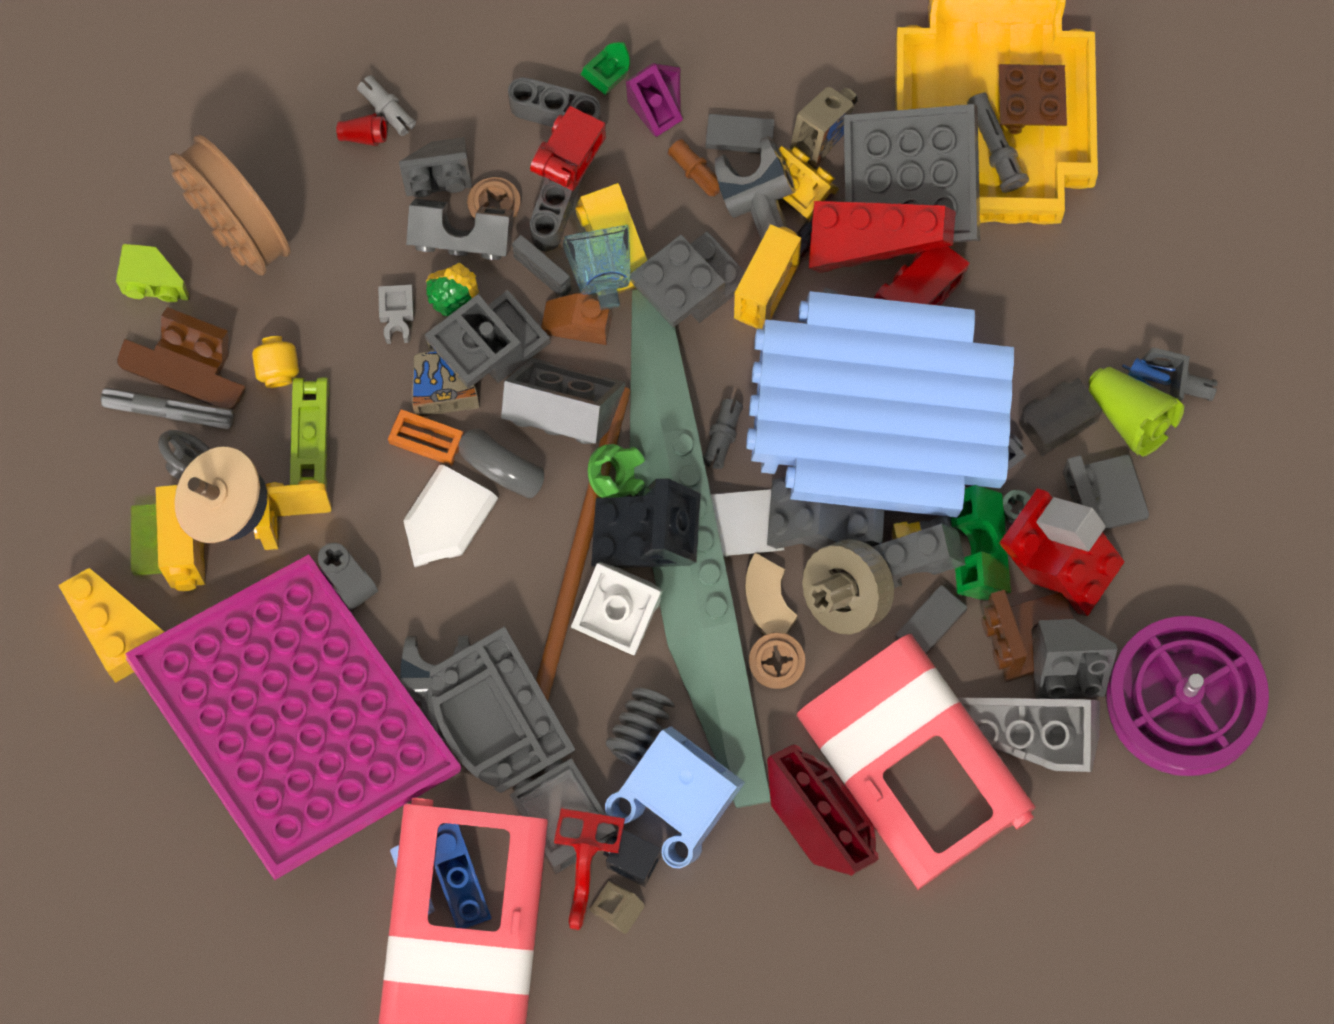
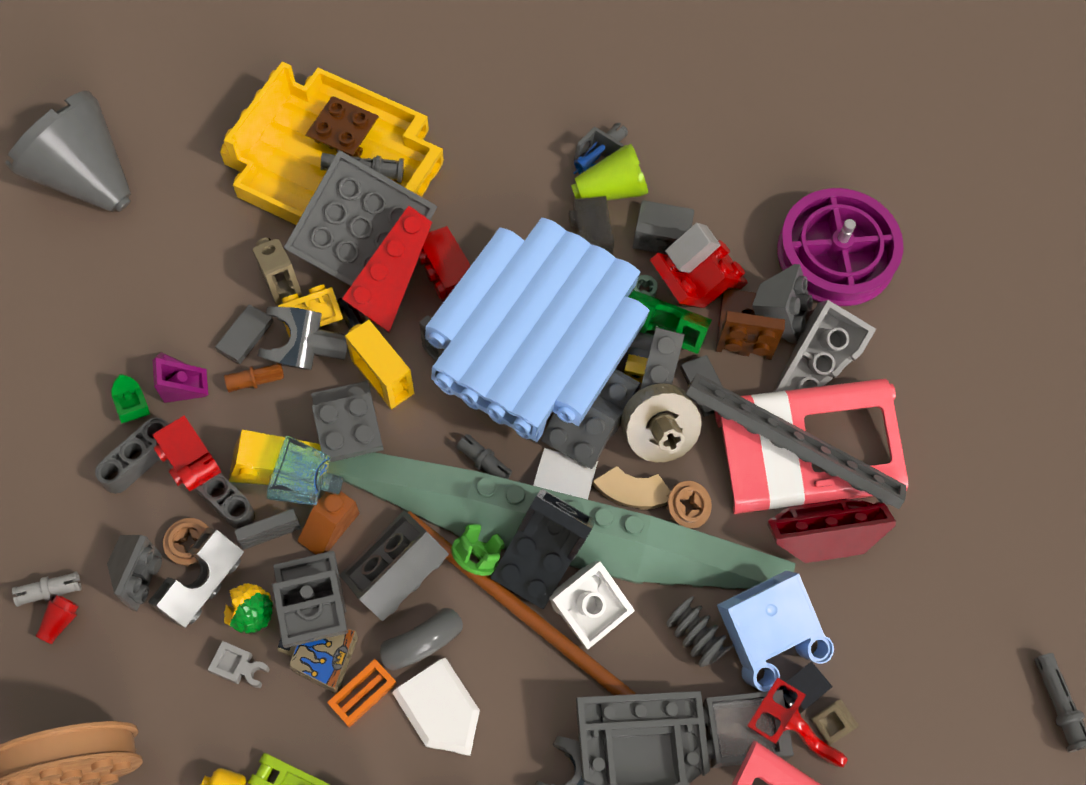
camera: 70 degrees left, 5 degrees down
(899, 734) = (797, 441): none -> dark grey plate

